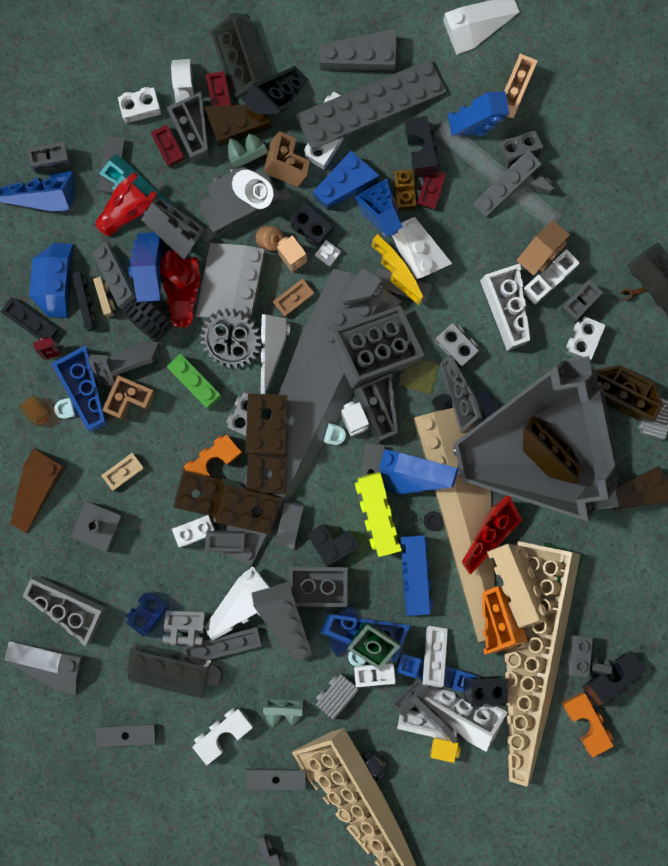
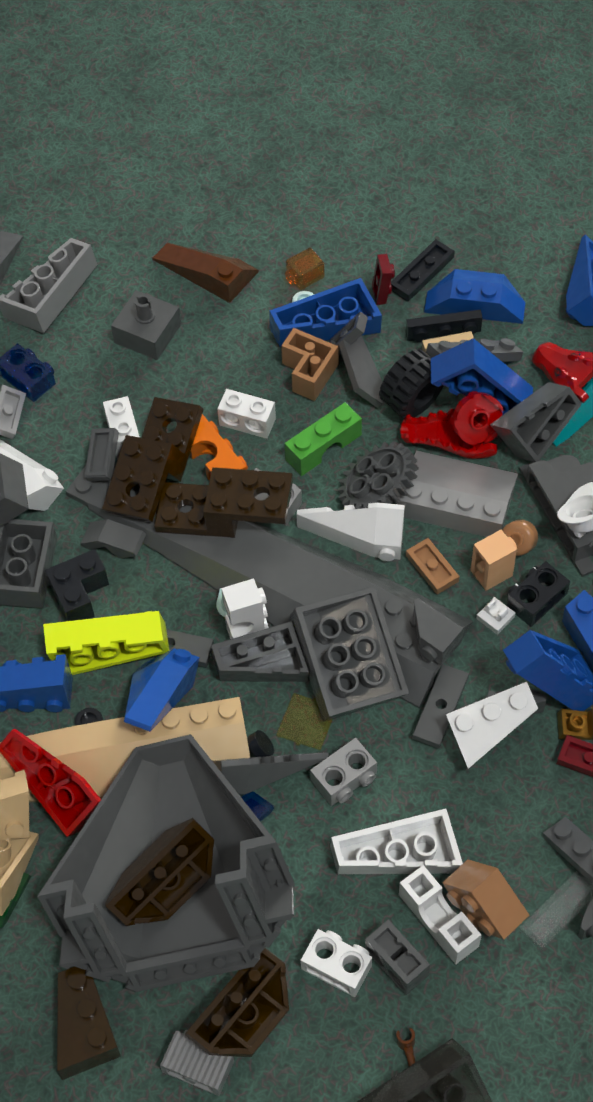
camera: 90 degrees right, 25 degrees down
(122, 472) = (214, 357): tan plate -> none
(175, 440) = (246, 413): none -> white brick
(400, 276) = (456, 695): yellow slope -> none

